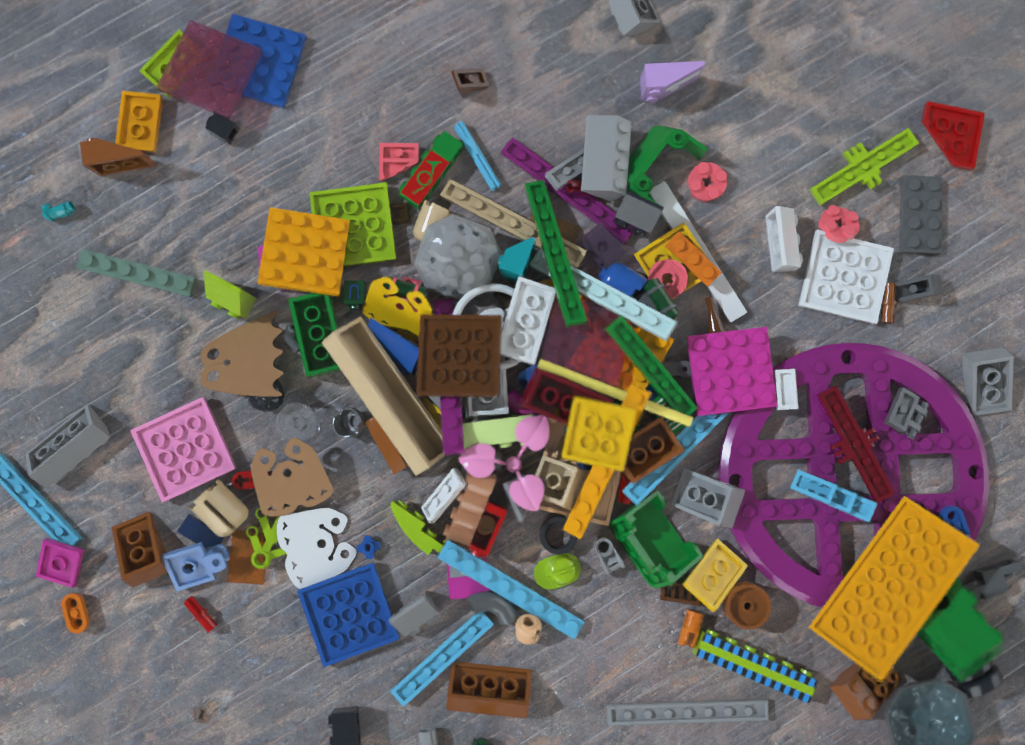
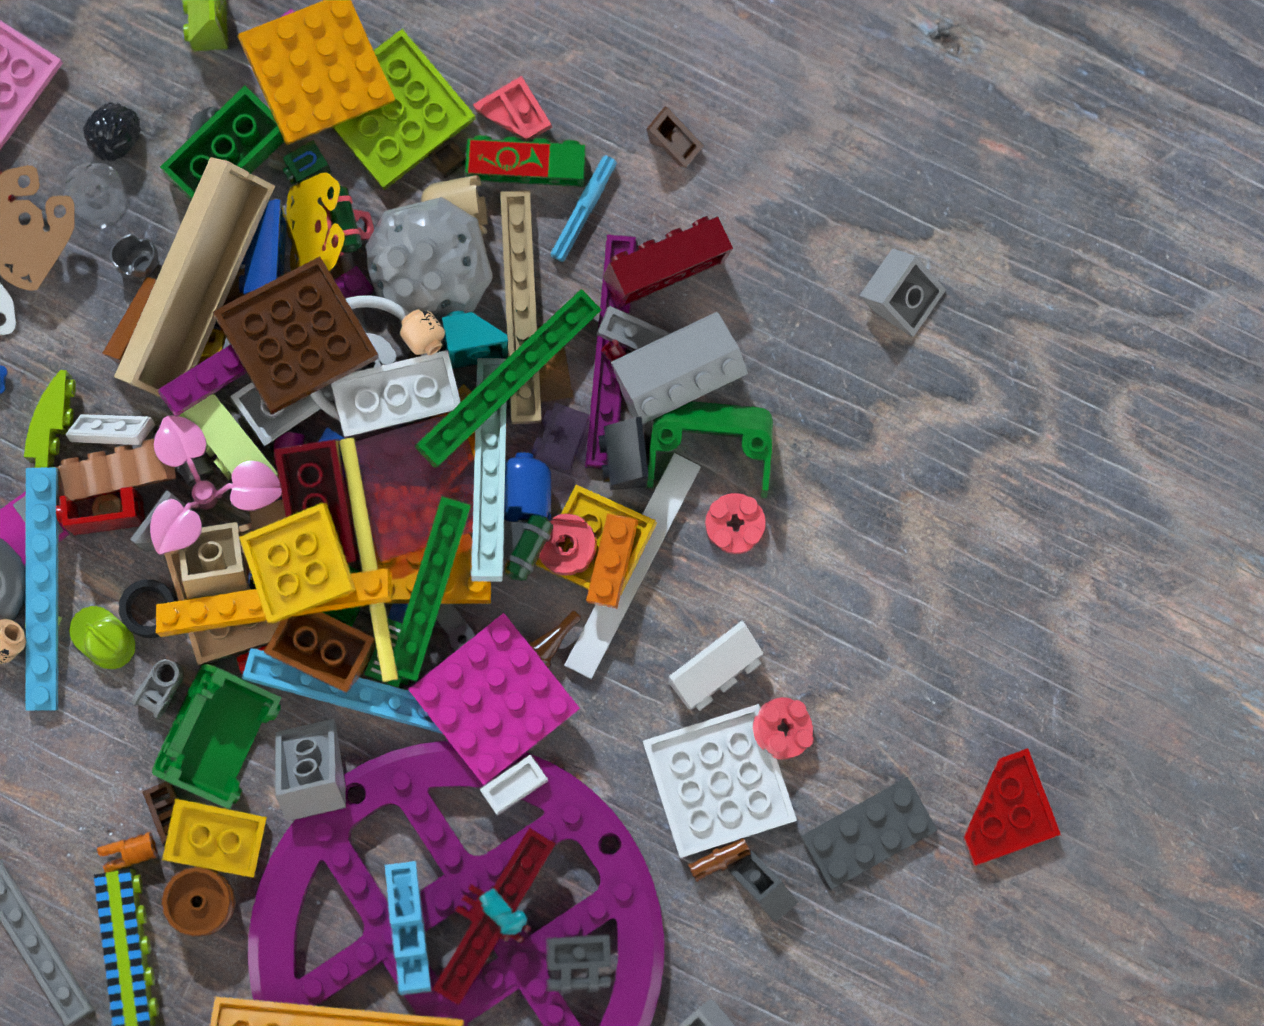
camera: 60 degrees right, 5 degrees down
(250, 358) = (145, 87): medium nougat piece -> none
(501, 283) = (422, 332): none -> light nougat head
(540, 124) = (667, 261): none -> dark red brick
(663, 79) = (831, 385): lavender slope -> none
(857, 439) = (500, 912): none -> teal arm
(863, 166) = (885, 716): lime hinge -> none

